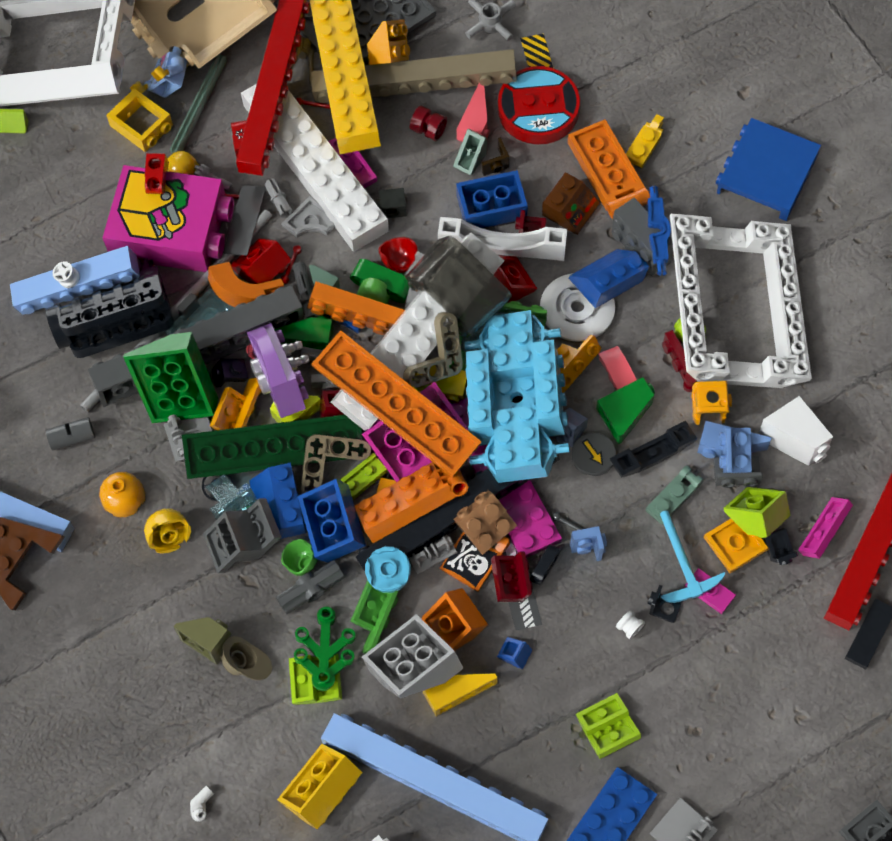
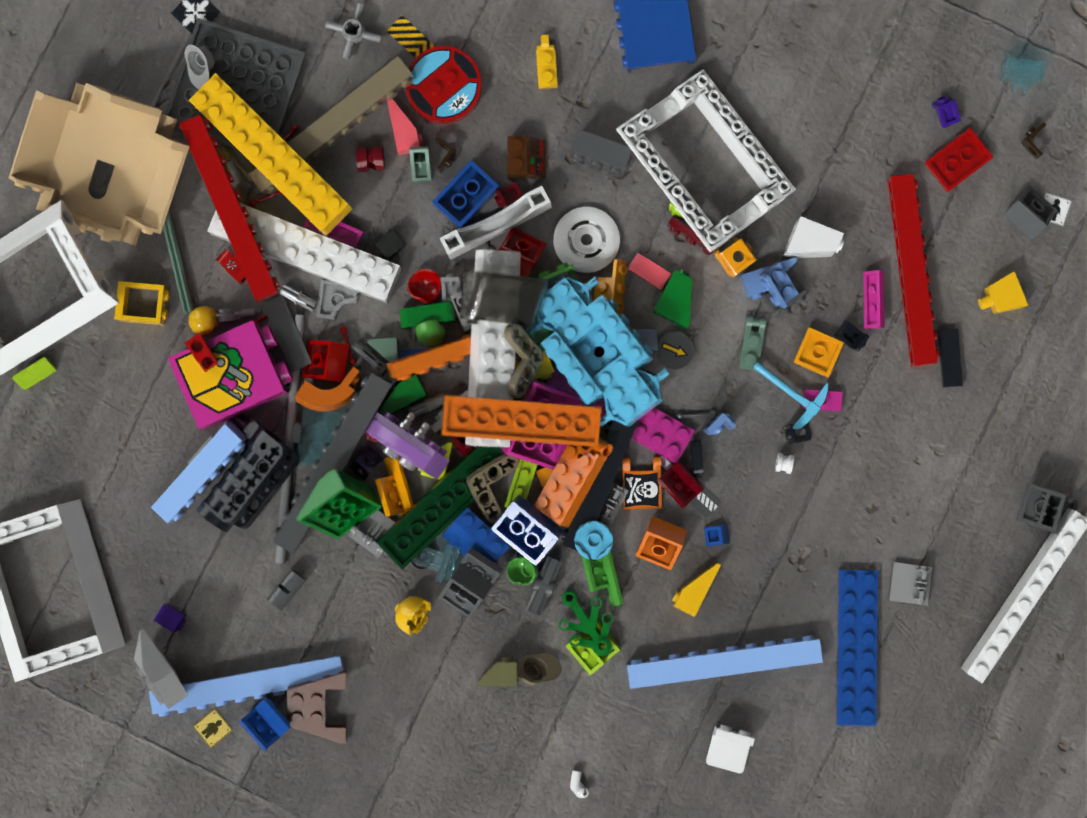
camera: 35 degrees left, 20 degrees up
(60, 274) = (190, 478): white wheel -> none
(122, 494) = (358, 608): light orange cylinder -> none
(167, 74) = (135, 253): light blue torso -> none
(320, 786) = (650, 719): yellow slope -> none
(389, 43) = (297, 114): light orange slope -> none
(412, 659) = (656, 594): light grey slope -> none
(485, 521) = (637, 459): medium nougat plate -> none
(607, 166) = (536, 109): orange hinge -> none
(608, 726) = (814, 544): lime slope -> none
(610, 276) = (594, 200): blue slope -> none
(654, 451) = (716, 320): black slope -> none
(658, 240) = (609, 138): blue piece -> none
(759, 510) = (821, 320): lime slope -> none

